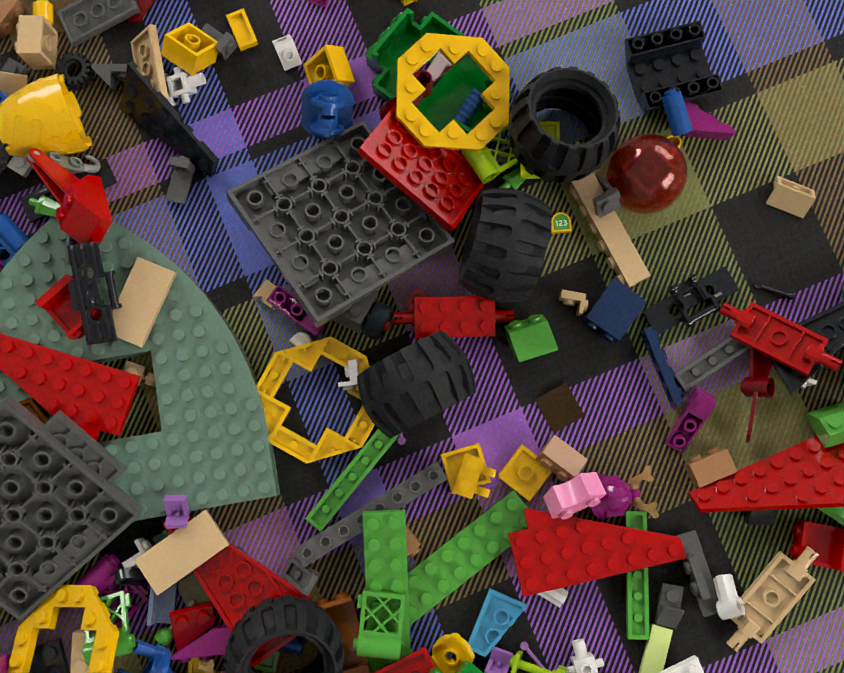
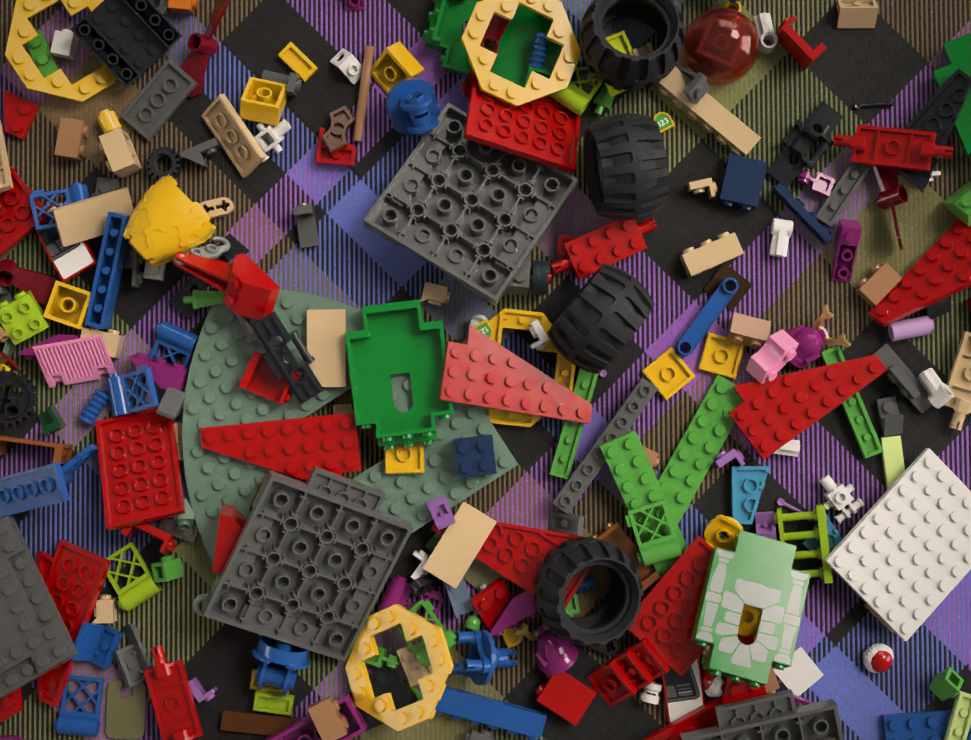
camera: 25 degrees left, 5 degrees up
(65, 640) = (391, 660): none -> bright green plate
(104, 126) = (214, 203): none -> tan beam
(163, 120) = (267, 177): black wing -> none
(168, 437) = (405, 459): none -> yellow tile
(206, 324) = (395, 344): none -> green panel
(234, 469) = (474, 456): none -> dark blue brick
(238, 123) = (342, 158): none -> red wing
(243, 110) = (335, 138): none -> reddish brown tile
(288, 81) = (363, 93): none -> medium nougat piece
(288, 305) = (462, 298): magenta slope -> none
(290, 401) = (496, 378): none -> wing
(299, 349) = (485, 328): none -> tile
(468, 477) = (674, 378): yellow plate -> none
(486, 576) = (724, 457): none -> medium lavender bracket
(526, 428) = (707, 316): none -> blue piece
(530, 337) = (678, 236): bright green slope -> none
(556, 368) = (711, 254): none -> tan brick
(632, 376) = (781, 232): none -> white piece
(691, 346) = (820, 183): none -> plate
(695, 178) = (765, 32): none -> white piece
(721, 202) = (796, 45): none -> red panel
(725, 525) = (910, 328): none -> lavender brick

